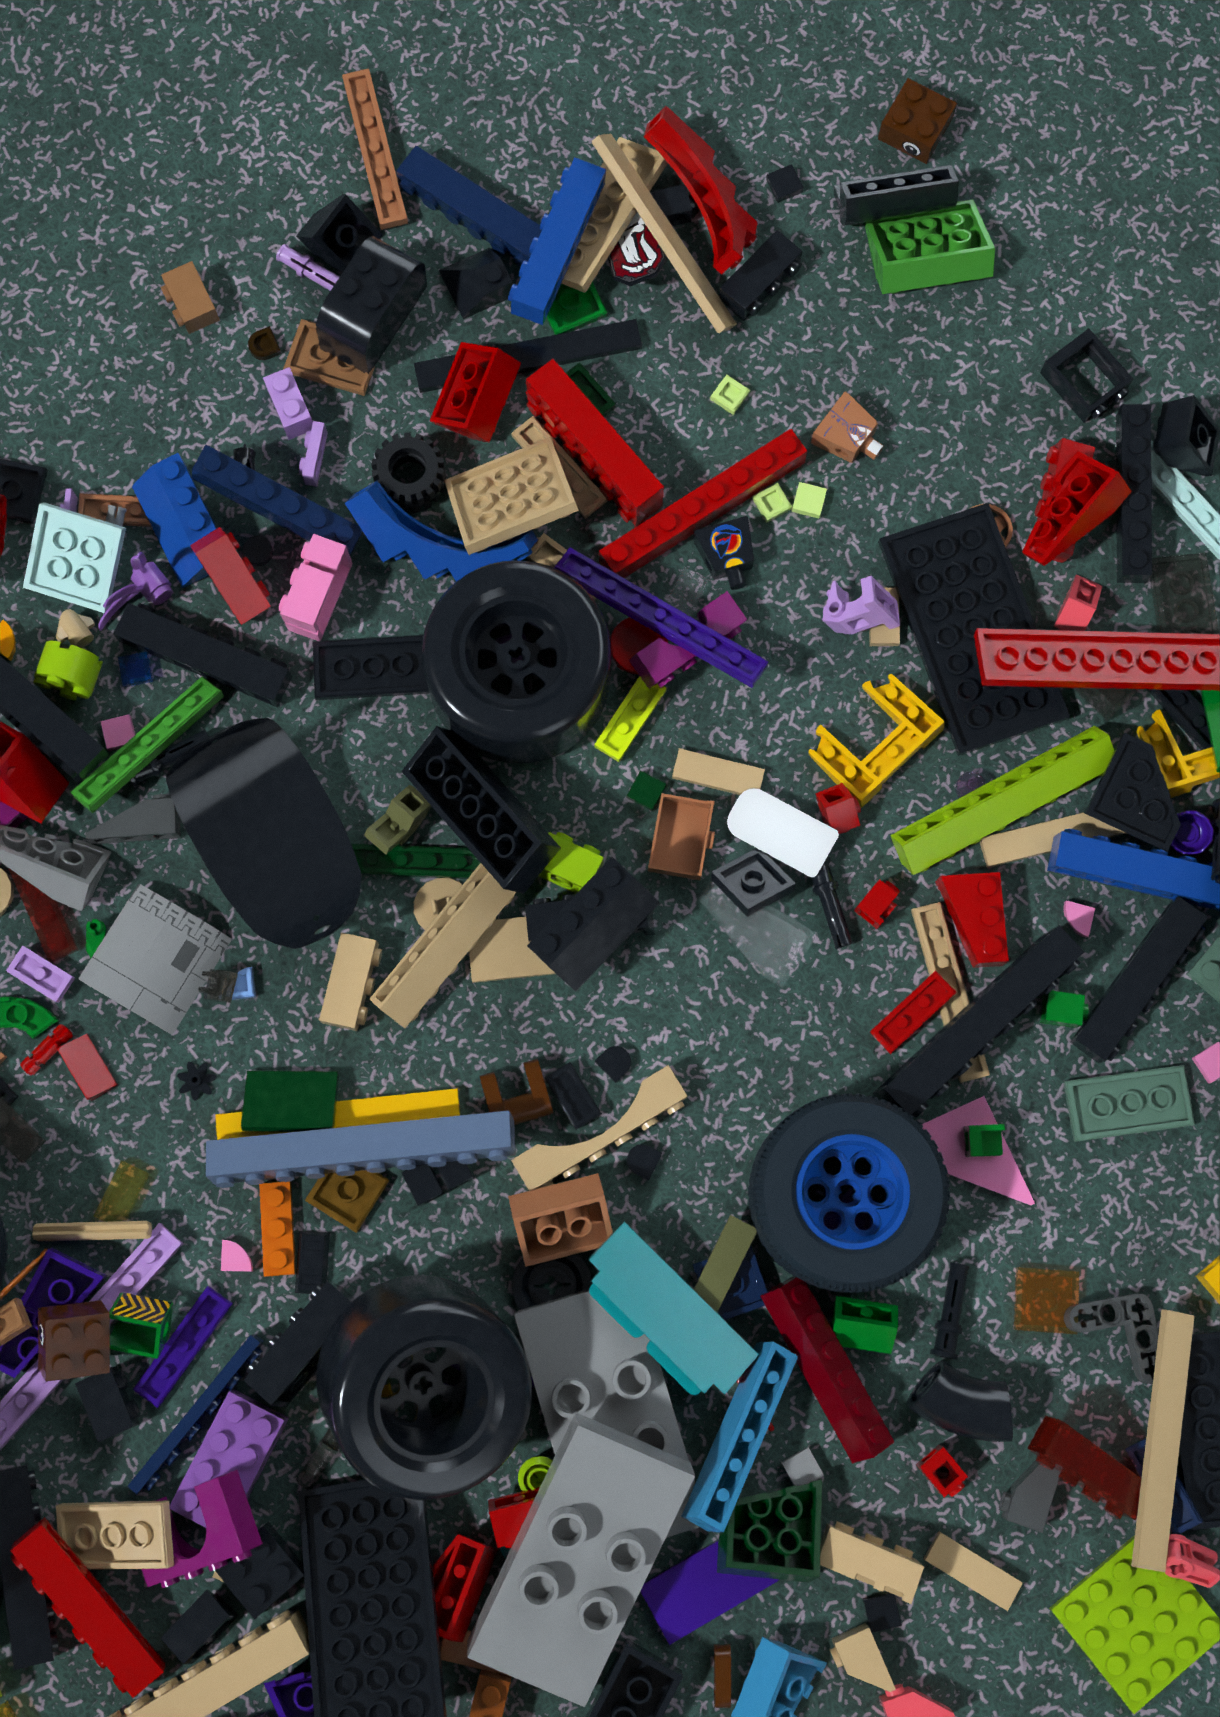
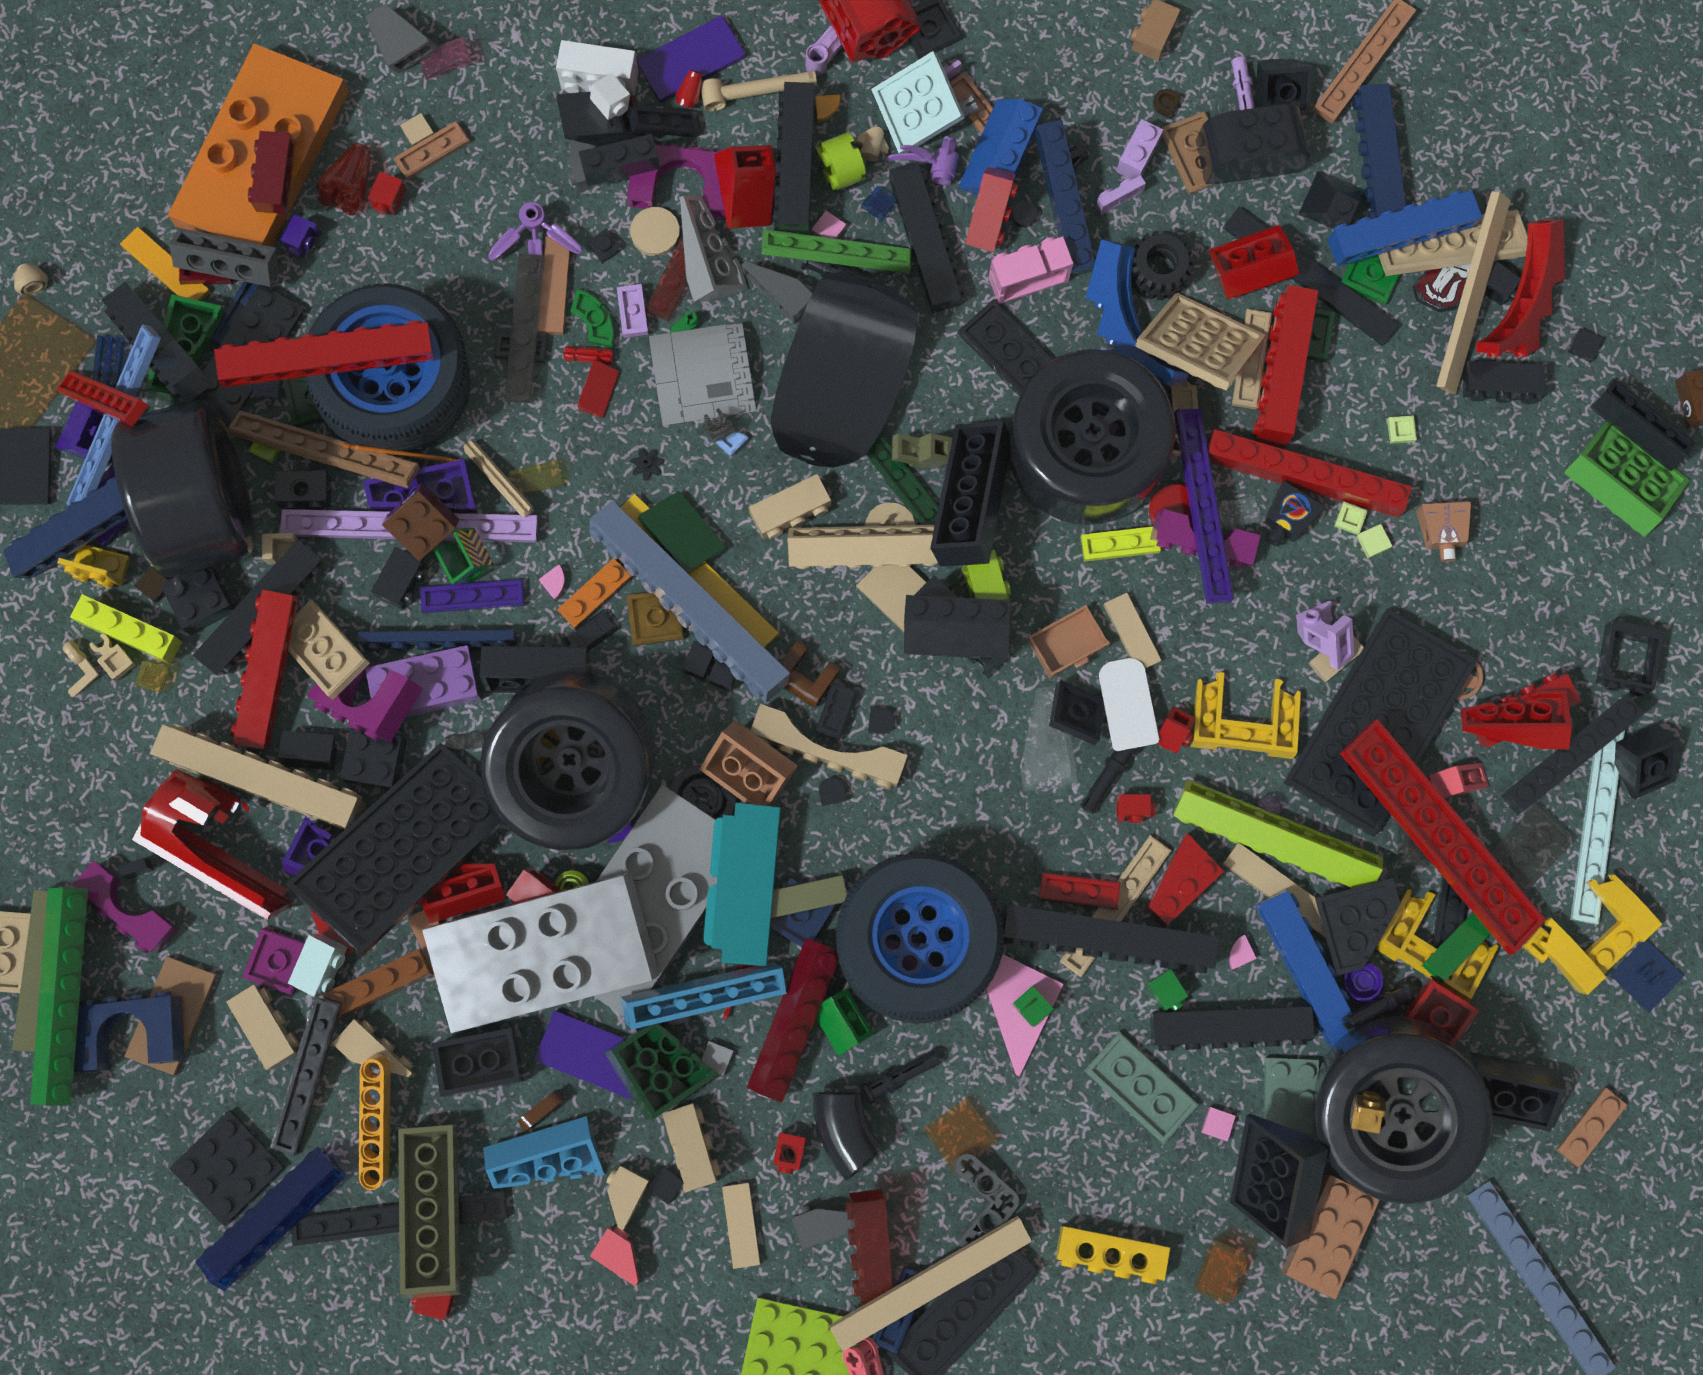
camera: 50 degrees right, 0 degrees up
(646, 790) = (1079, 594): dark green tile -> none

